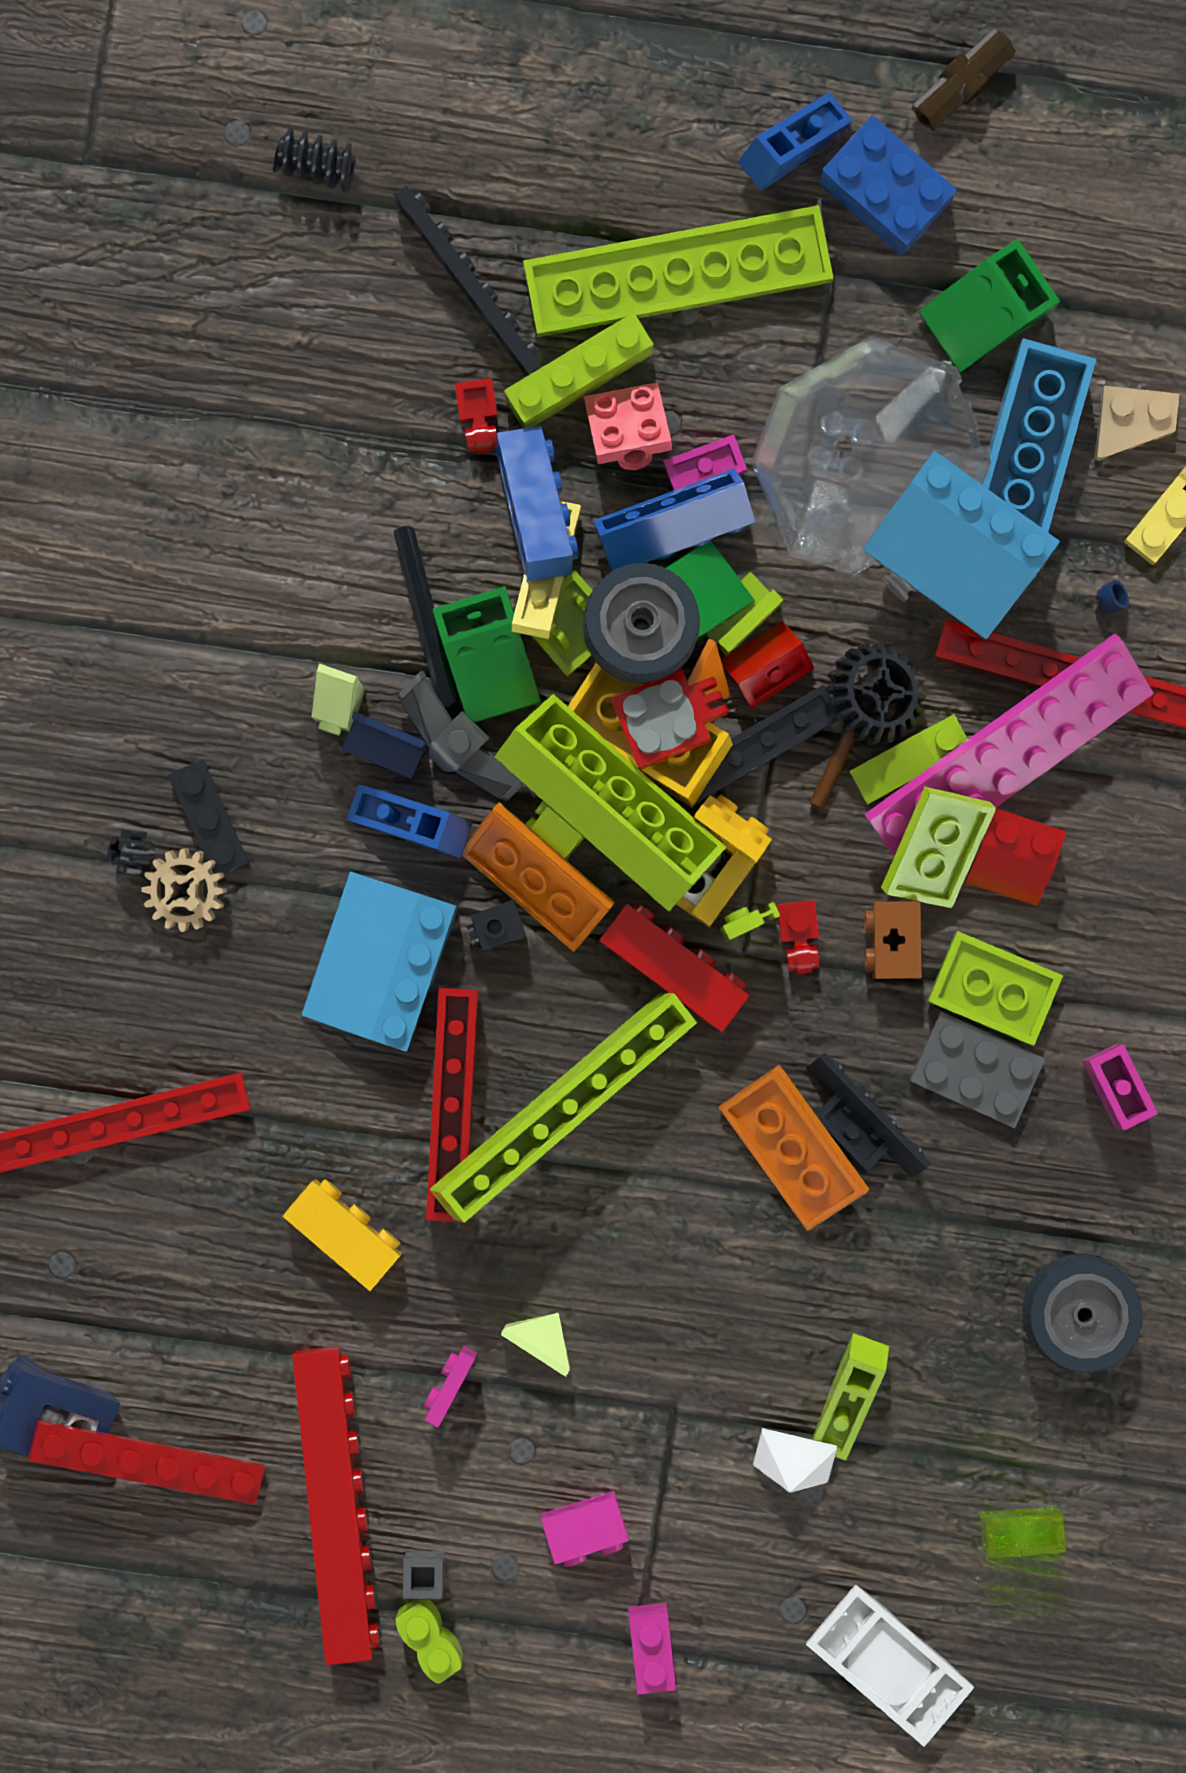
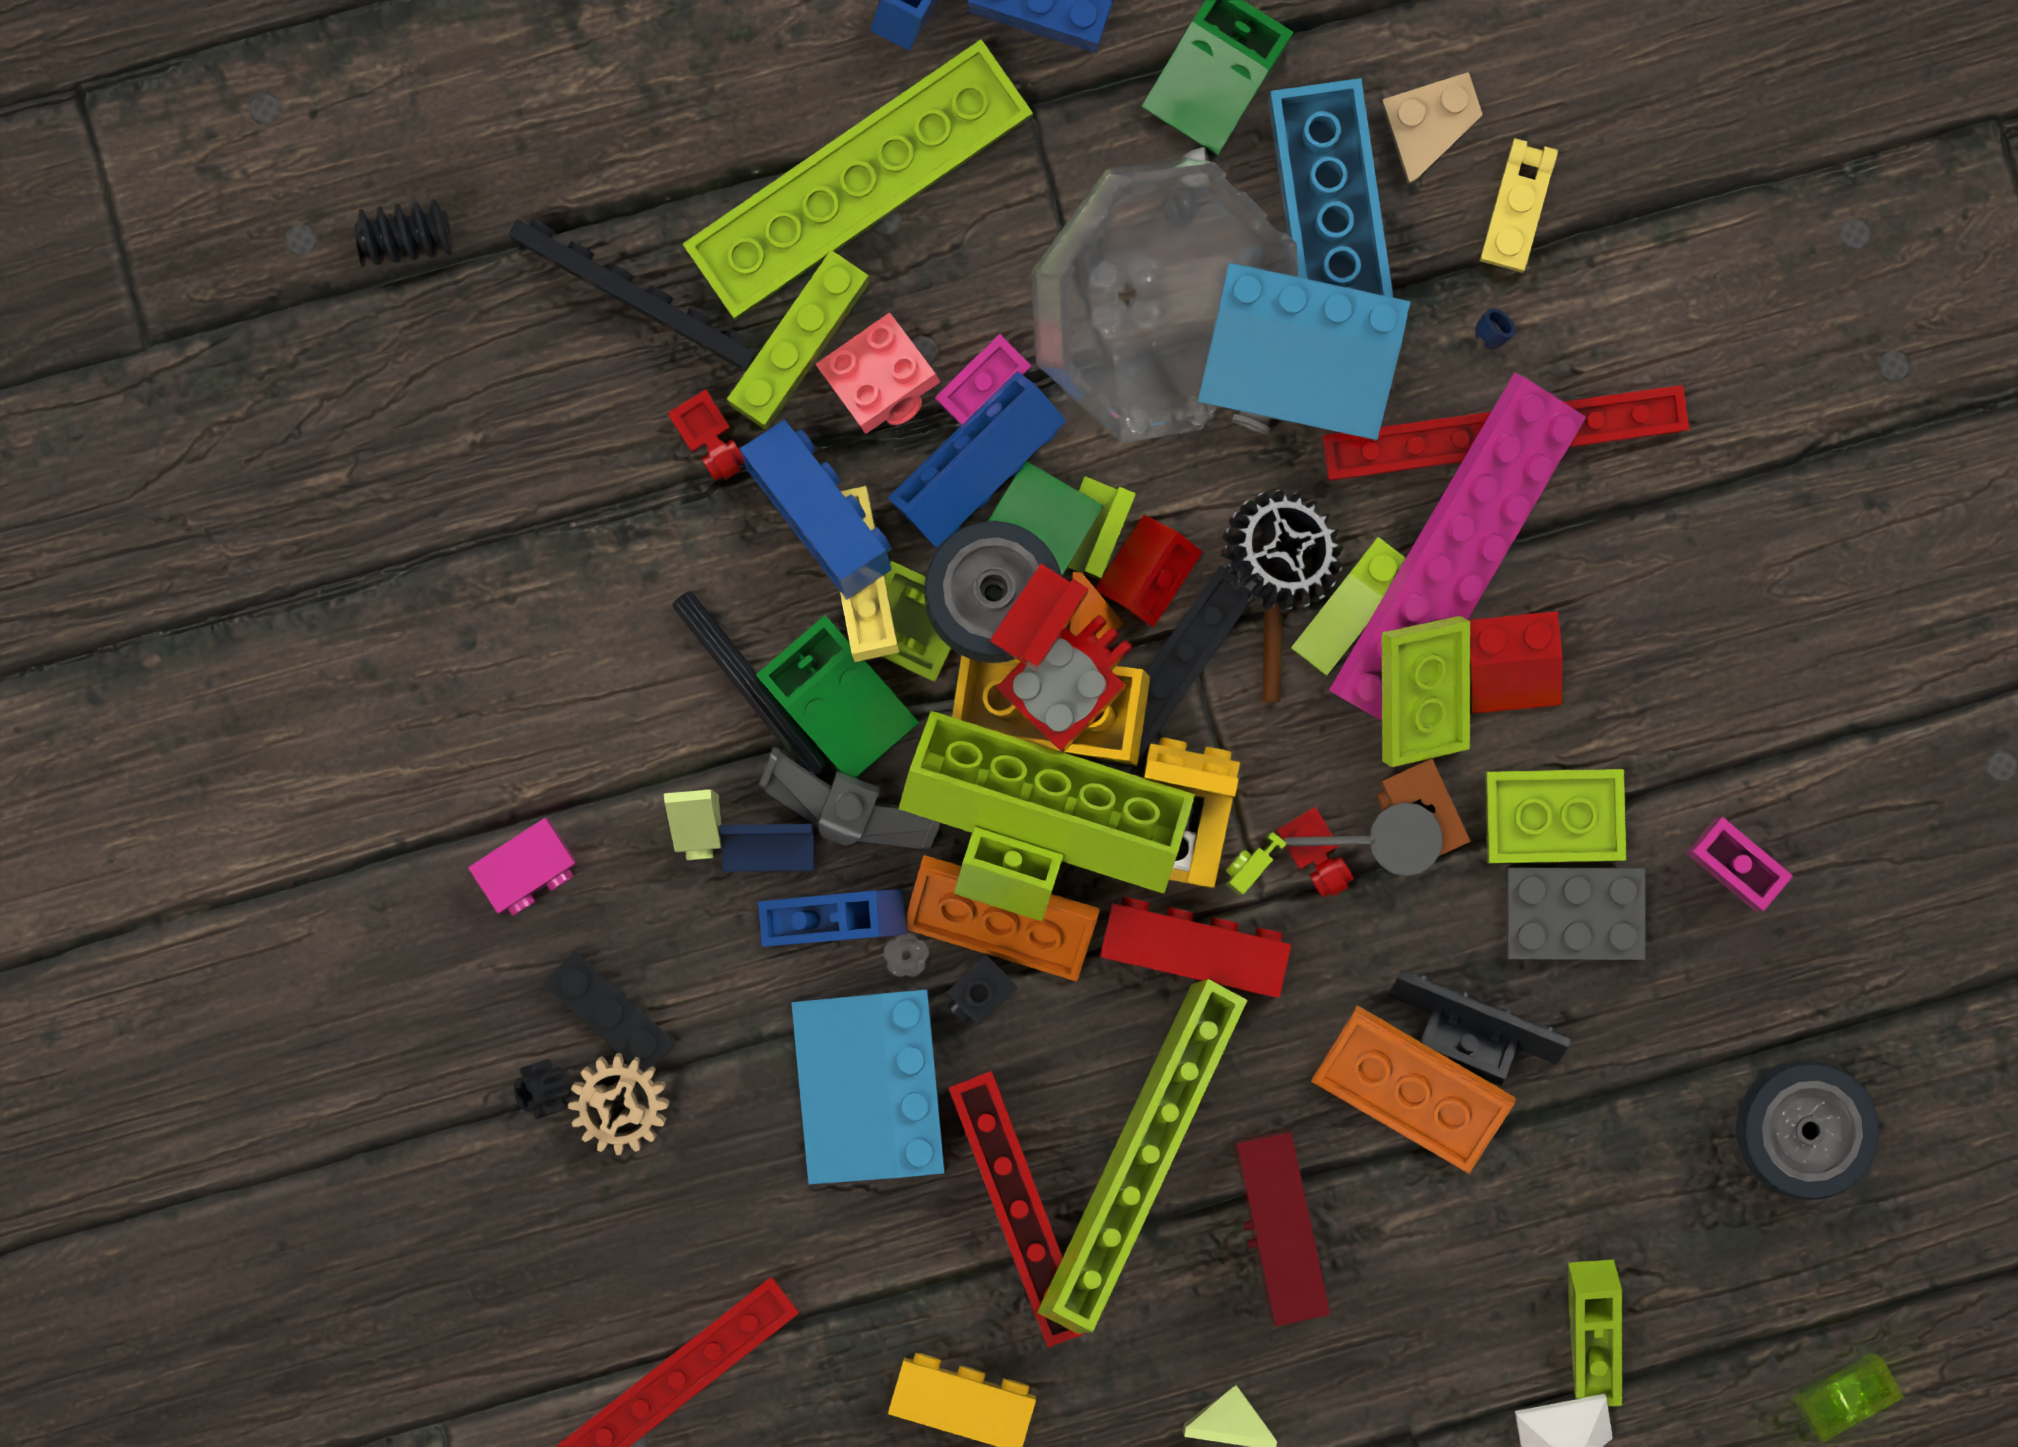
camera: 25 degrees left, 0 degrees up
(192, 679) = (524, 867): none -> dark pink brick
(456, 884) = (912, 966): none -> clear plate
(556, 843) = (1008, 874): none -> lime brick
(645, 1208) = (1281, 1227): none -> dark red brick
(667, 655) = (1039, 617): none -> red panel
(869, 953) = (1402, 839): none -> dark grey piece

